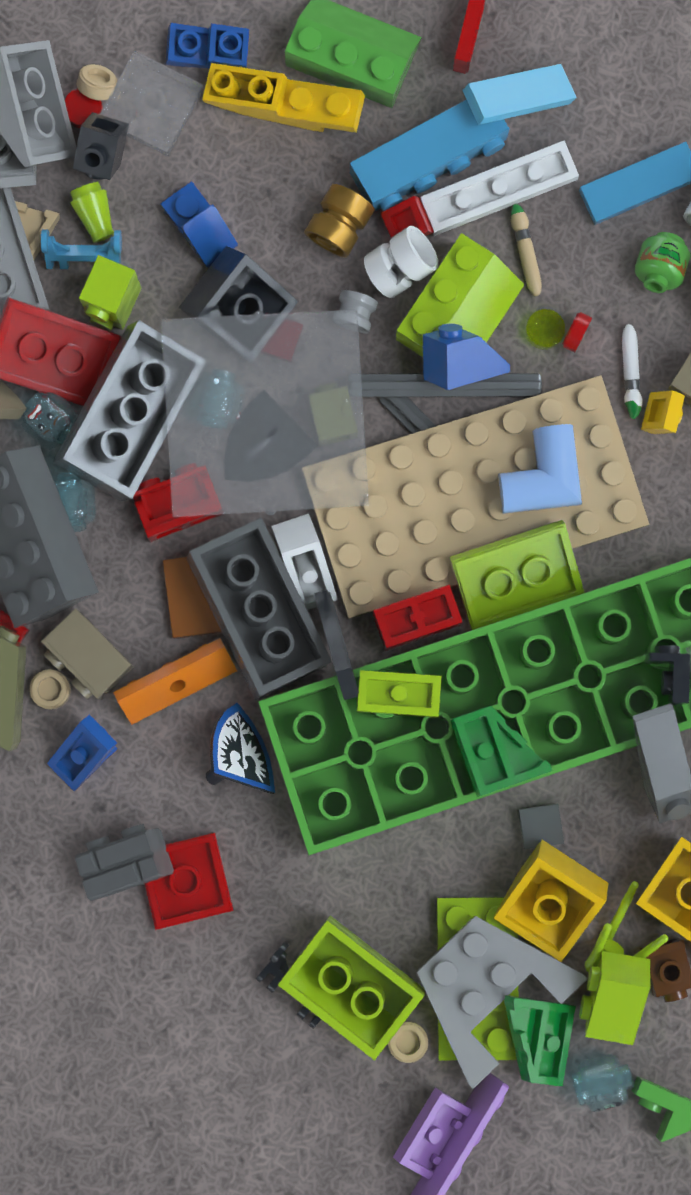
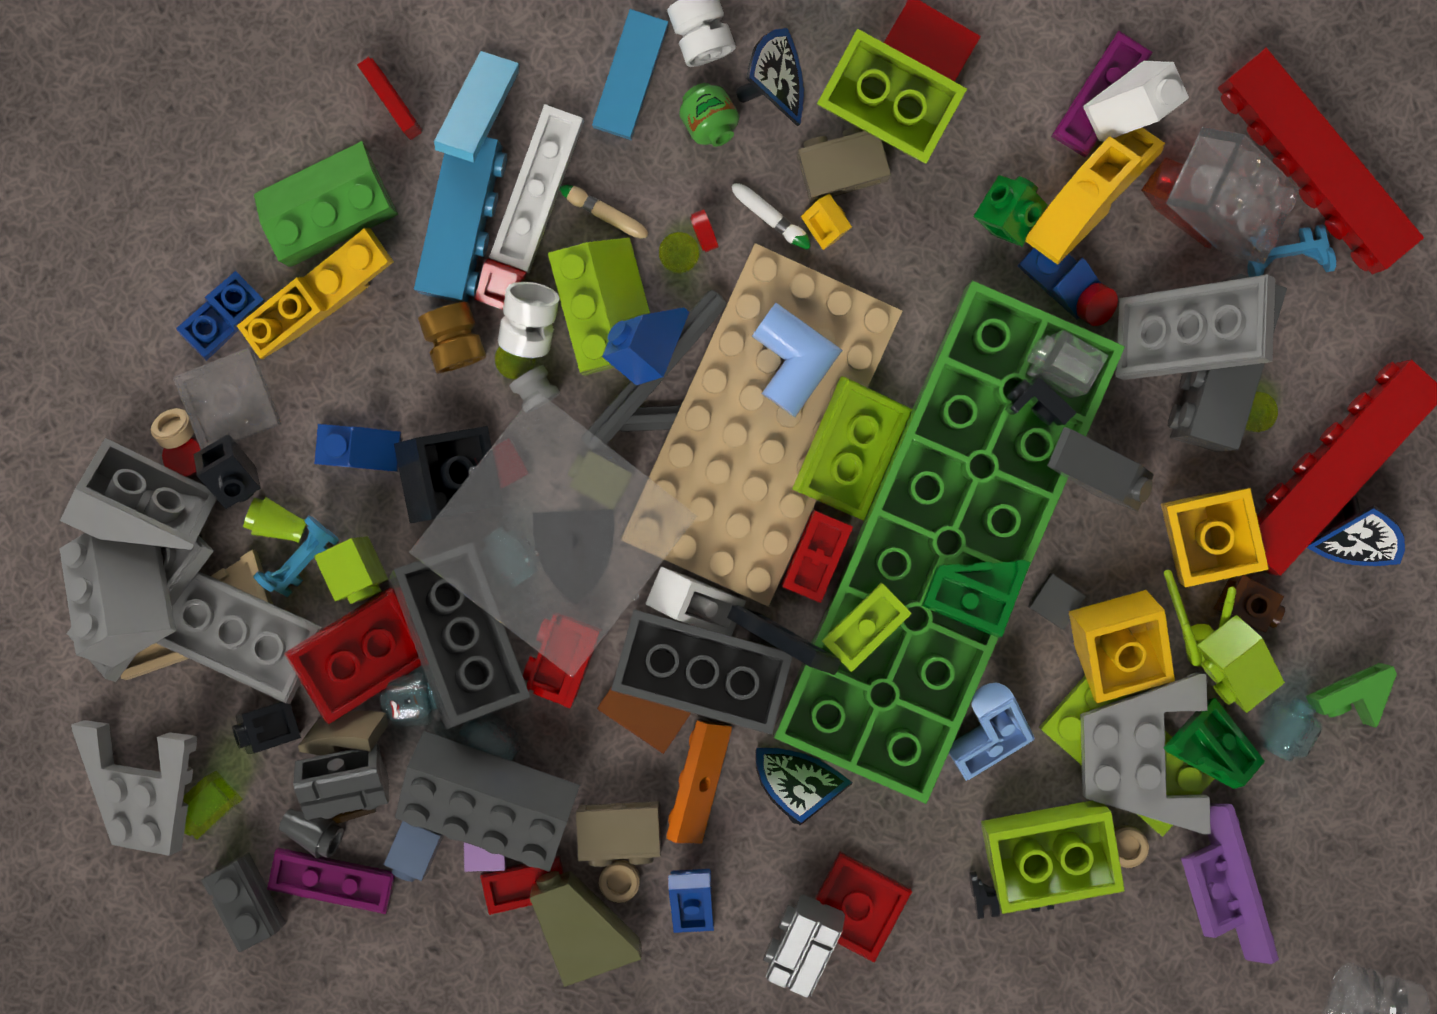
camera: 50 degrees left, 5 degrees up
(357, 280) = (512, 365): none -> clear neon green tile
(403, 870) = (999, 735): none -> light blue brick

